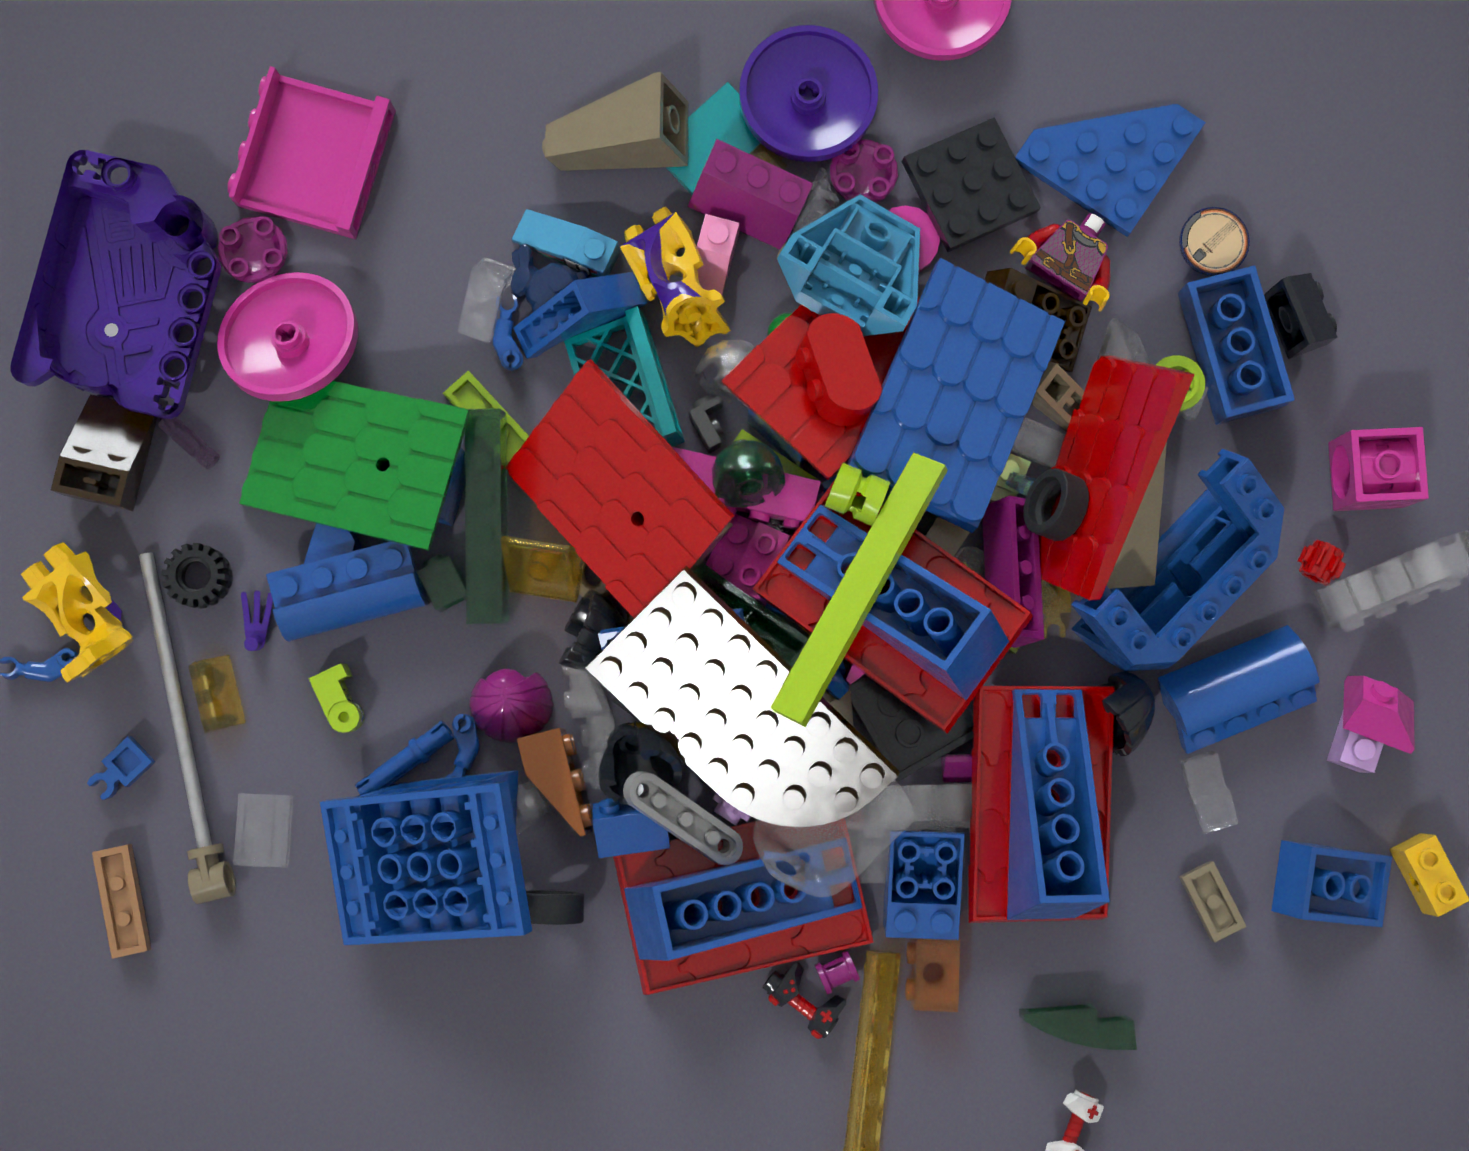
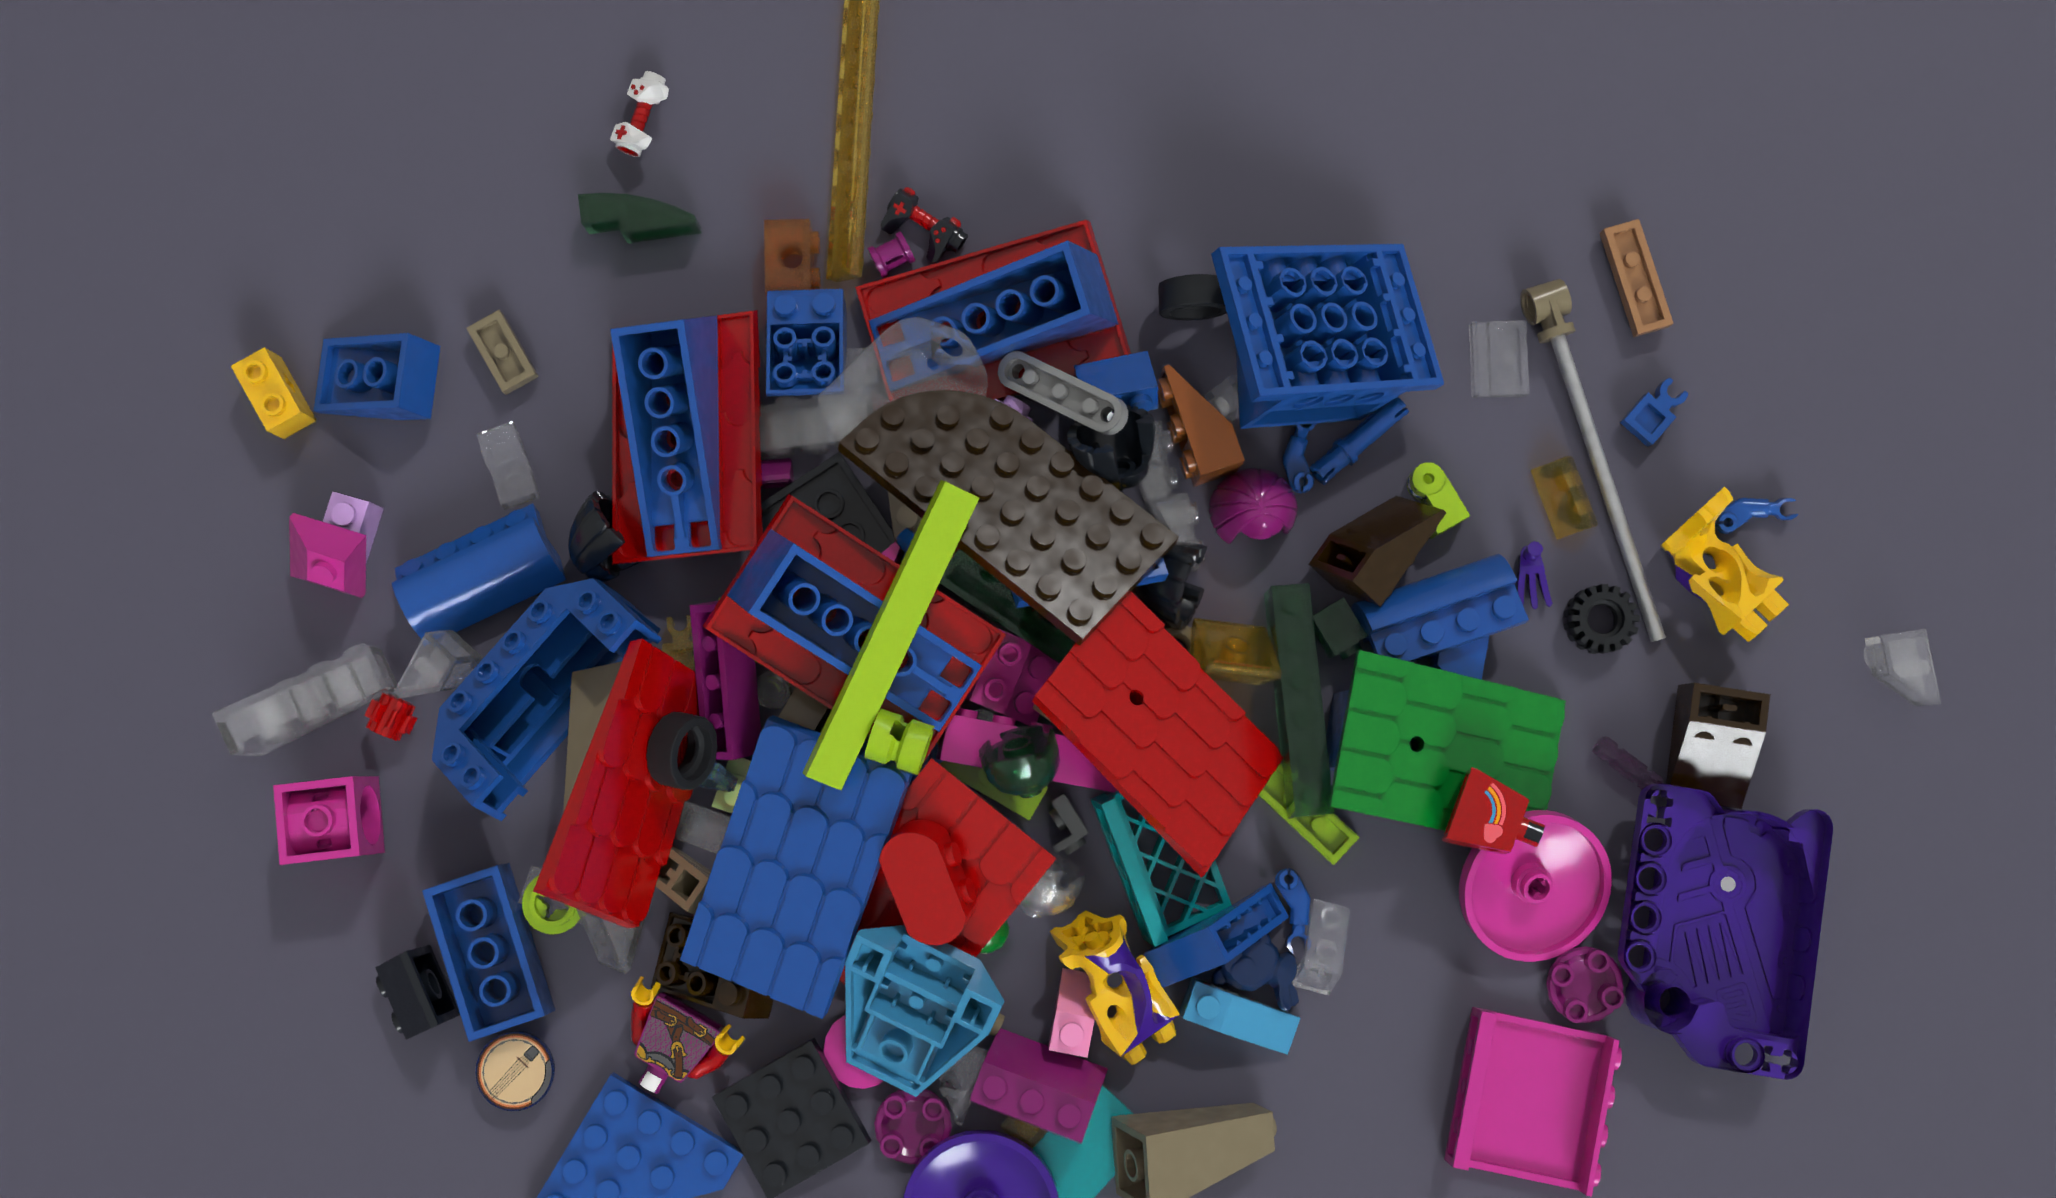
camera: 170 degrees right, 0 degrees up
(323, 393) = (1490, 816): none -> red torso
(398, 654) = (1376, 548): none -> dark brown slope
(1276, 603) = (437, 665): none -> clear slope

